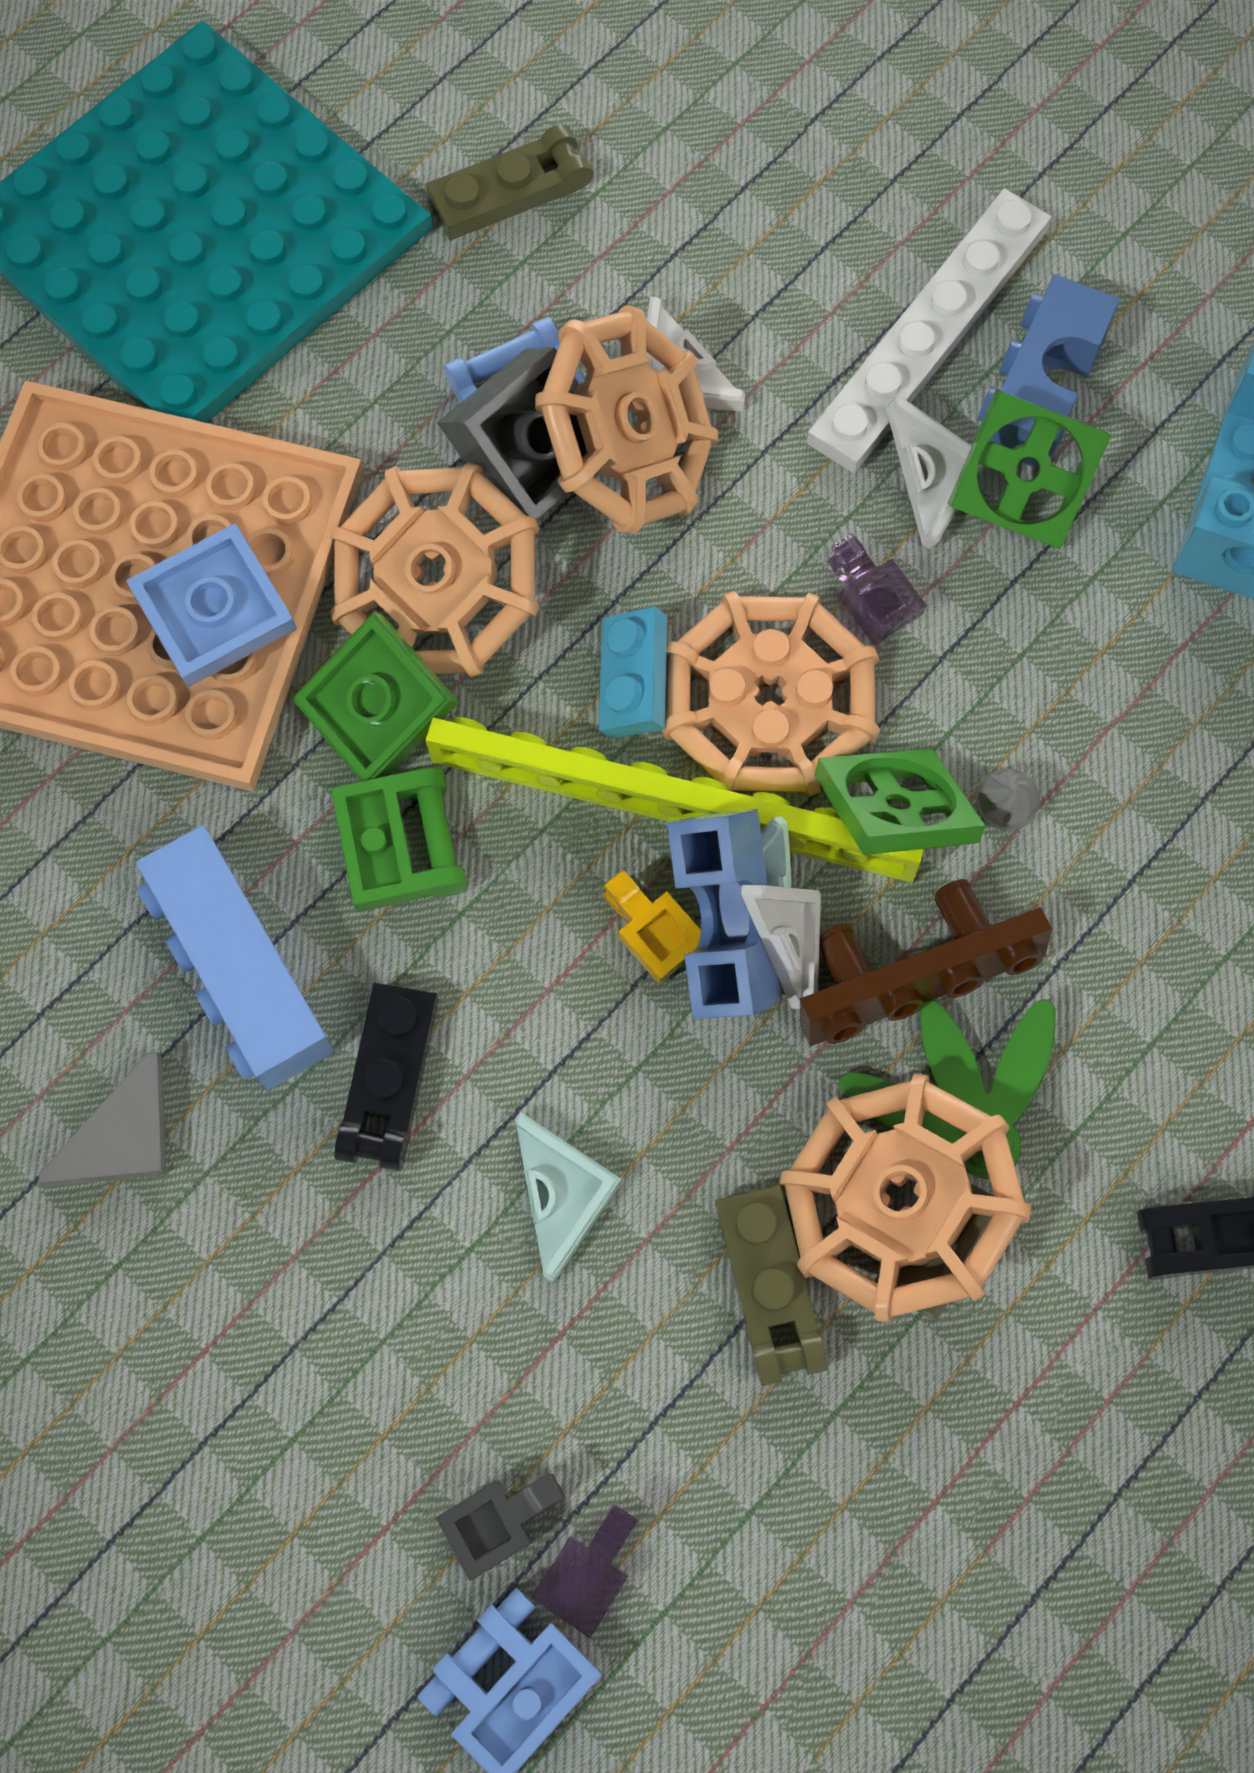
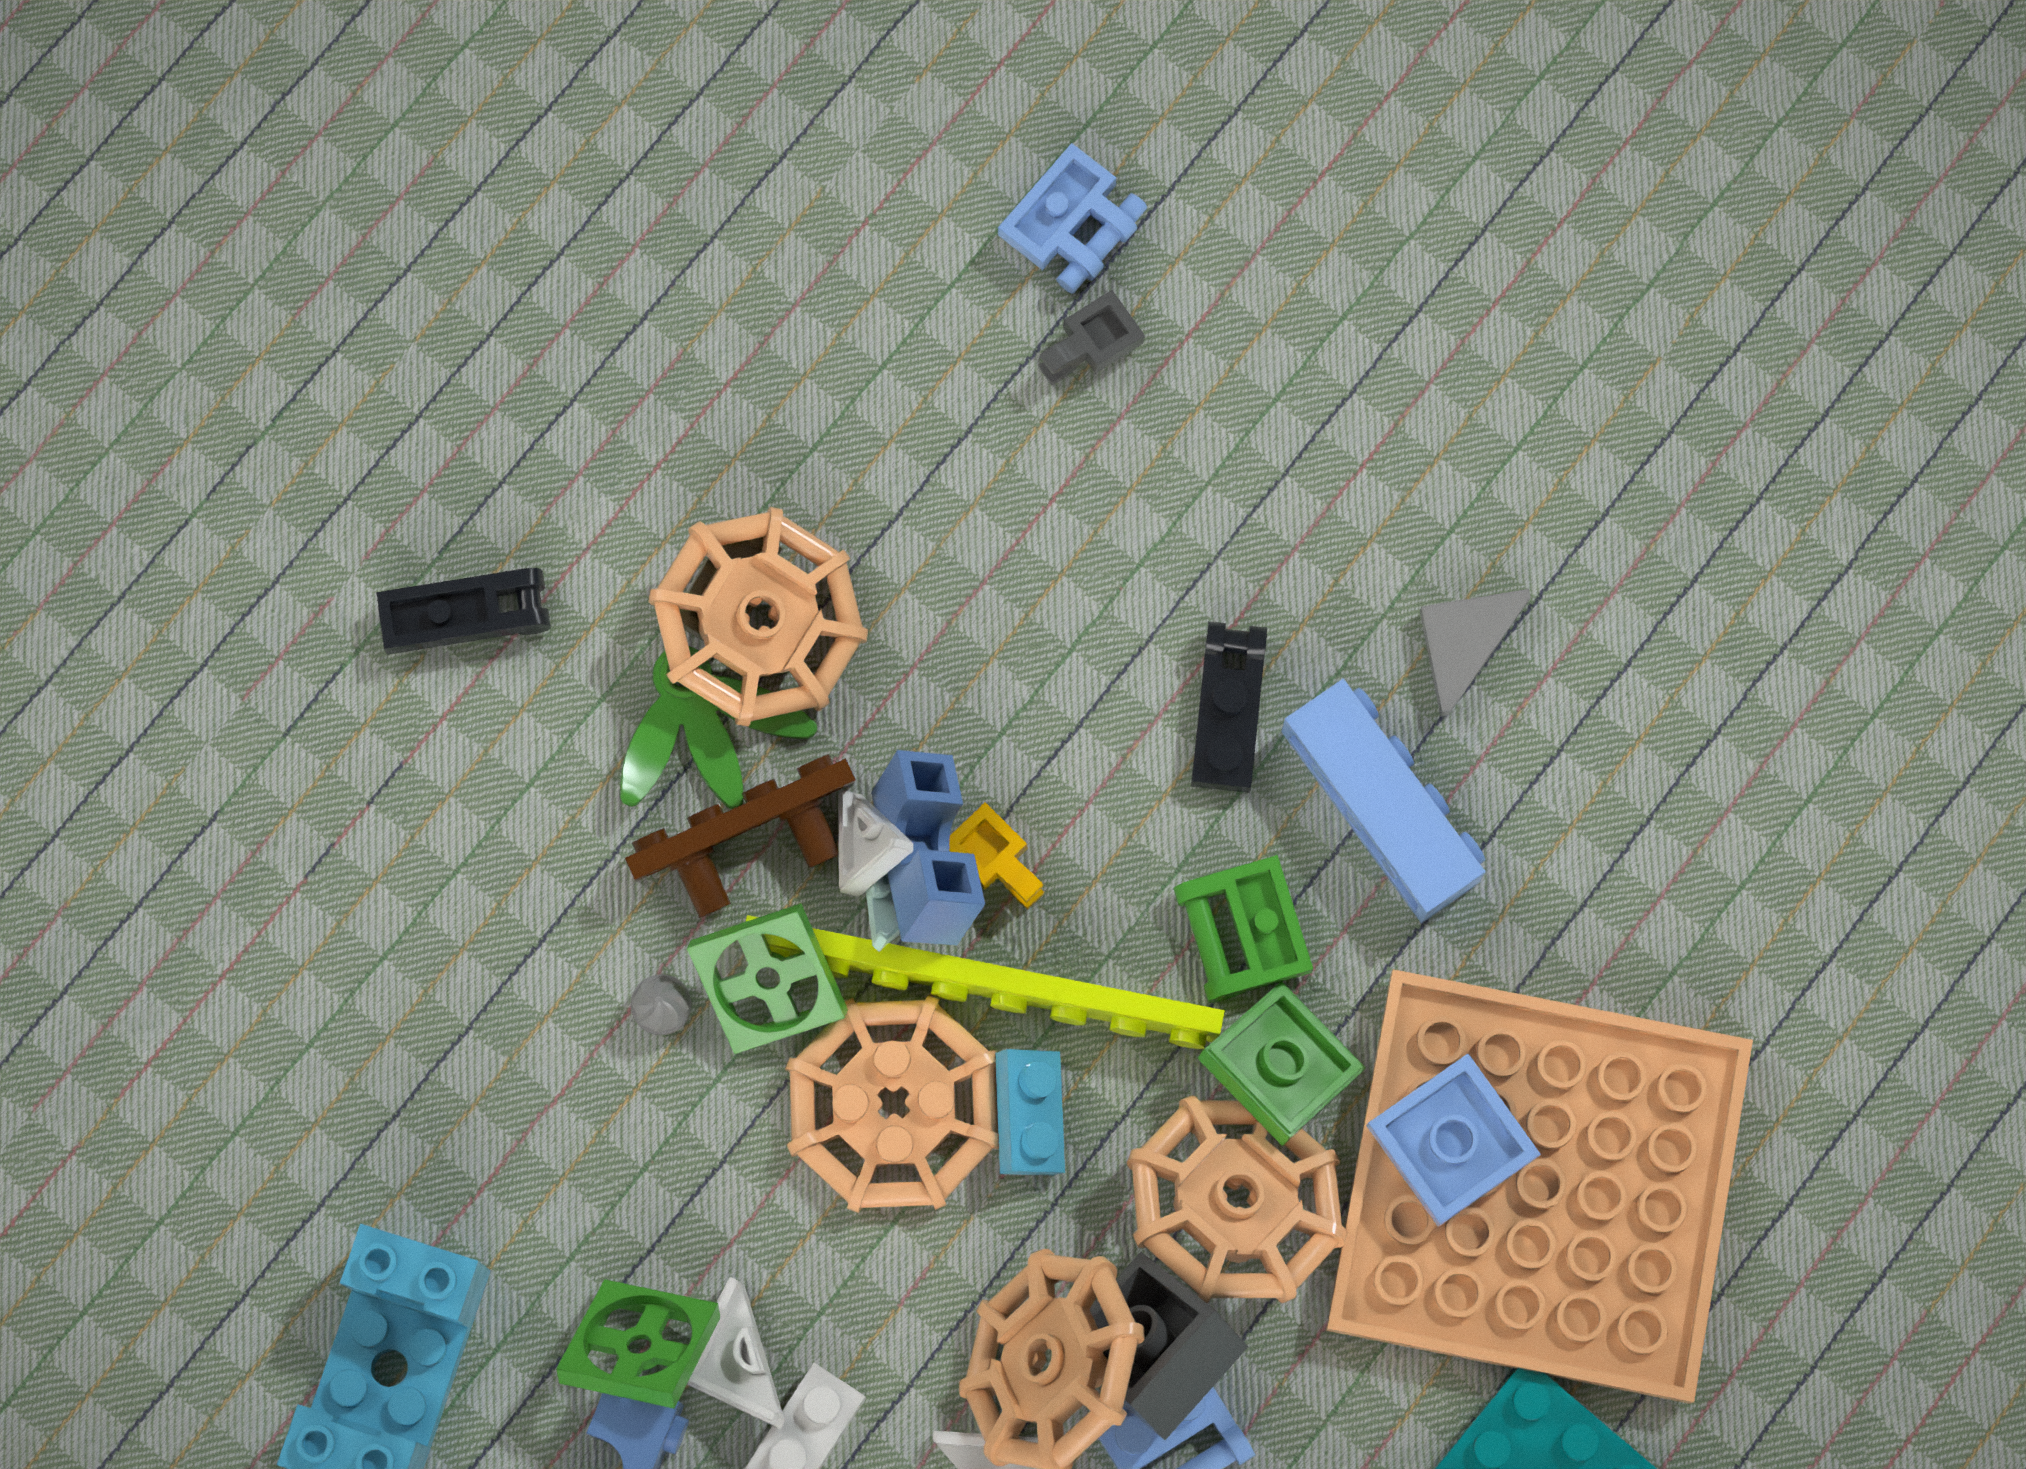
camera: 175 degrees right, 5 degrees up
(564, 1193) = (1060, 616): light aqua tile -> none
(583, 1577) = (1014, 303): clear purple plate -> none
(770, 1283) = (876, 549): olive plate -> none
(875, 596) = (789, 1211): clear purple plate -> none

